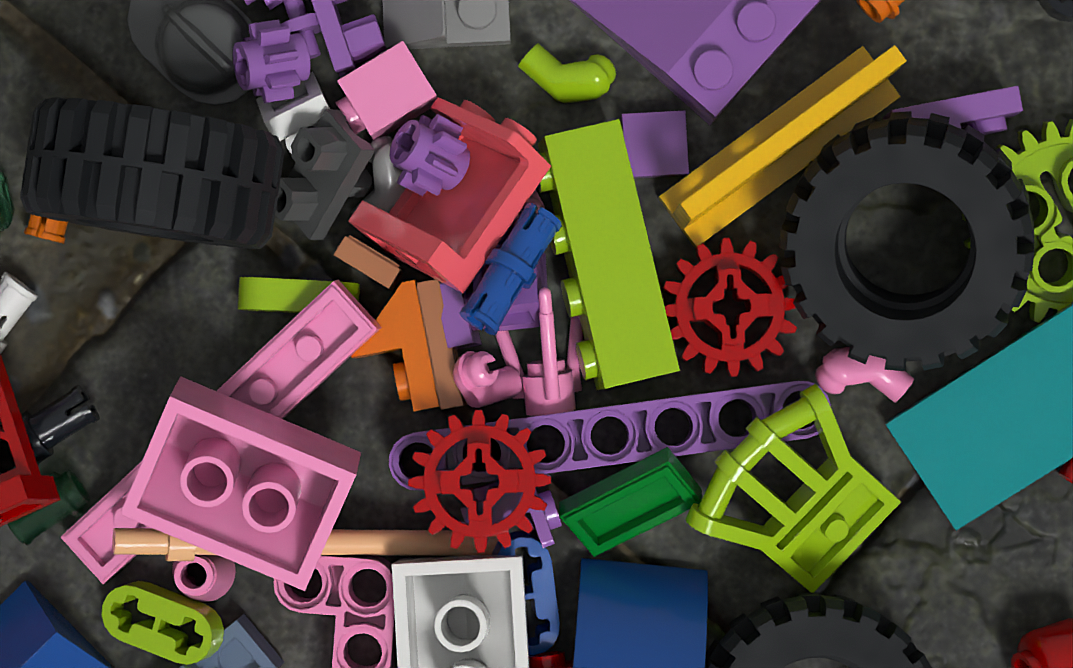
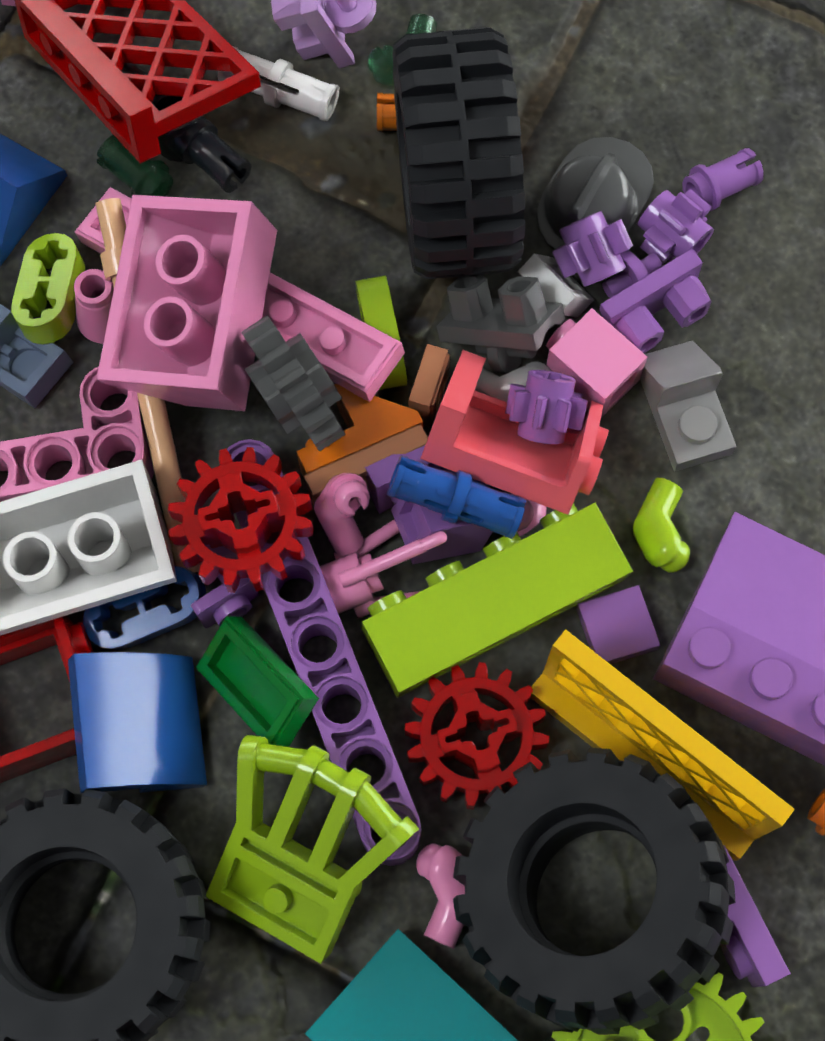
camera: 75 degrees right, 15 degrees down
(359, 399) = (293, 383): none -> dark grey gear

